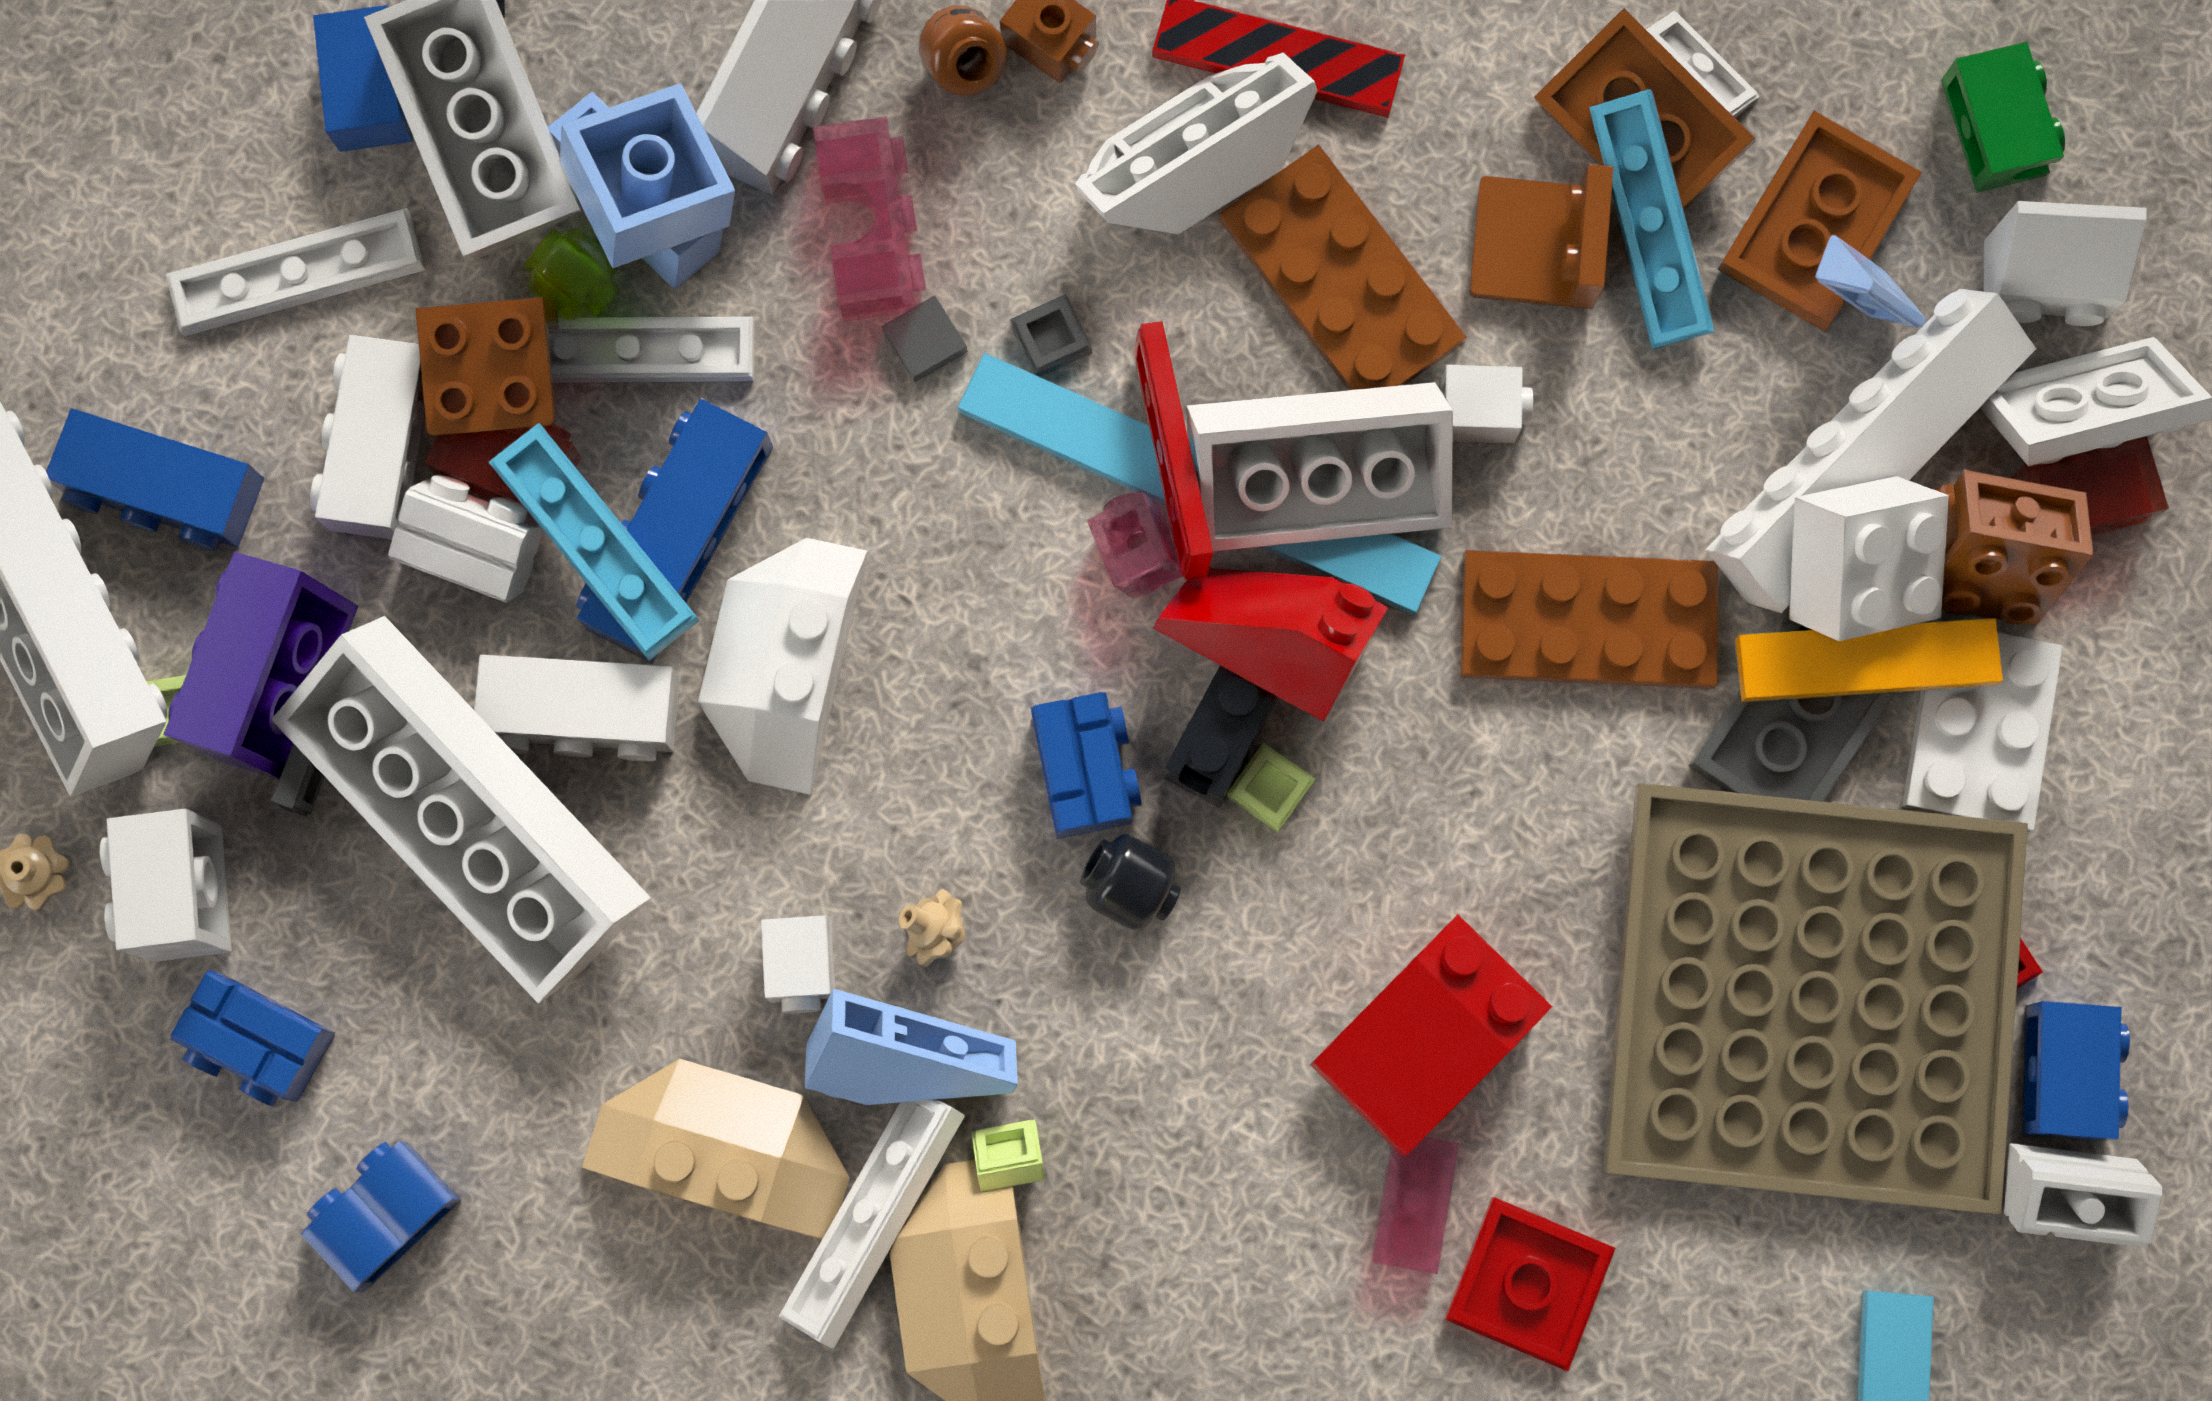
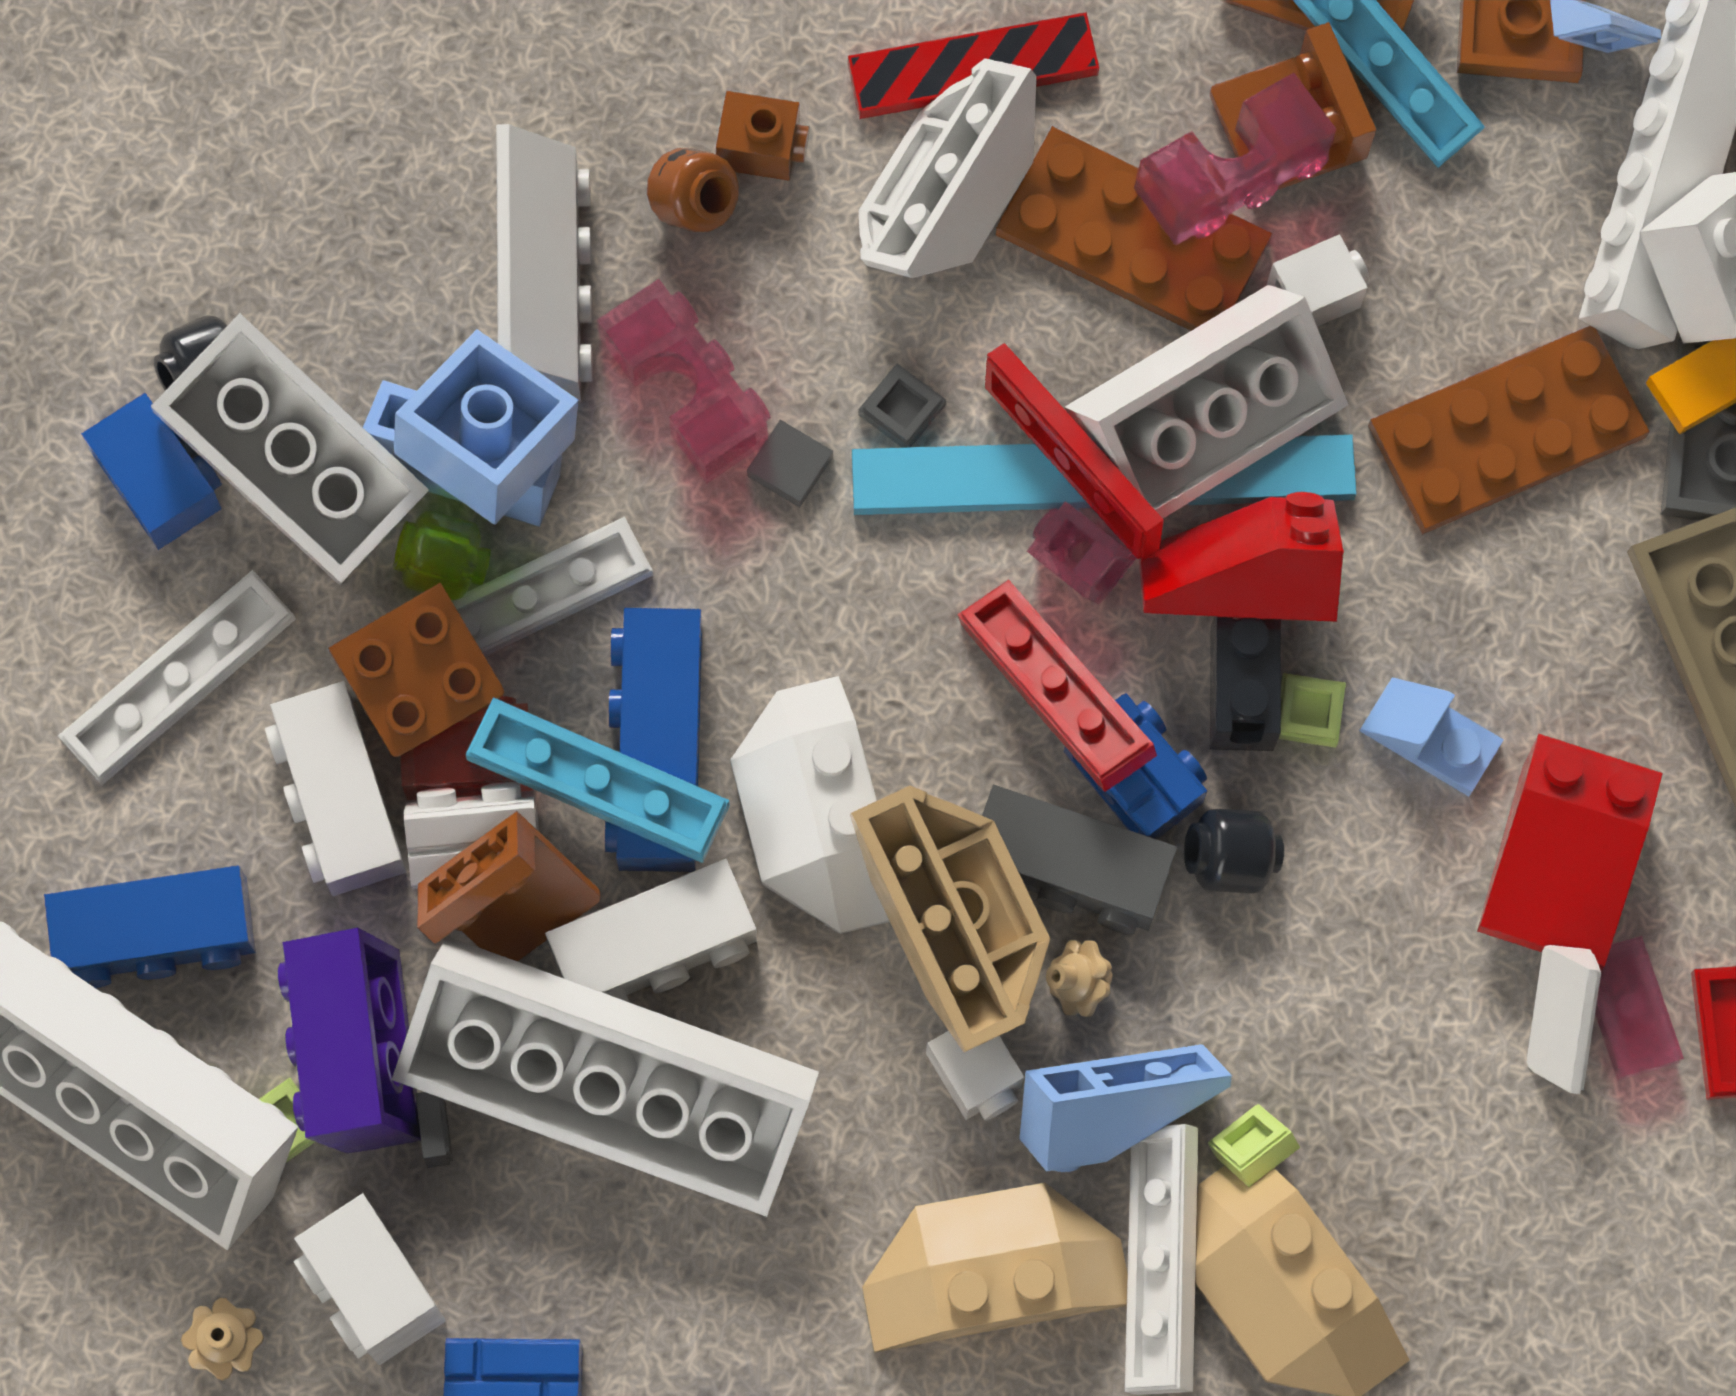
camera: 30 degrees left, 5 degrees down
(461, 600) = (504, 891): none -> dark orange bracket
(844, 815) = (955, 910): none -> tan wedge
(979, 818) = (1082, 860): none -> dark grey brick
(1047, 656) = (1057, 685): none -> tile
(1346, 1181) = (1564, 1016): none -> white slope
(1369, 864) = (1430, 734): none -> light blue slope
(1412, 265) = (1196, 190): none -> clear pink arch

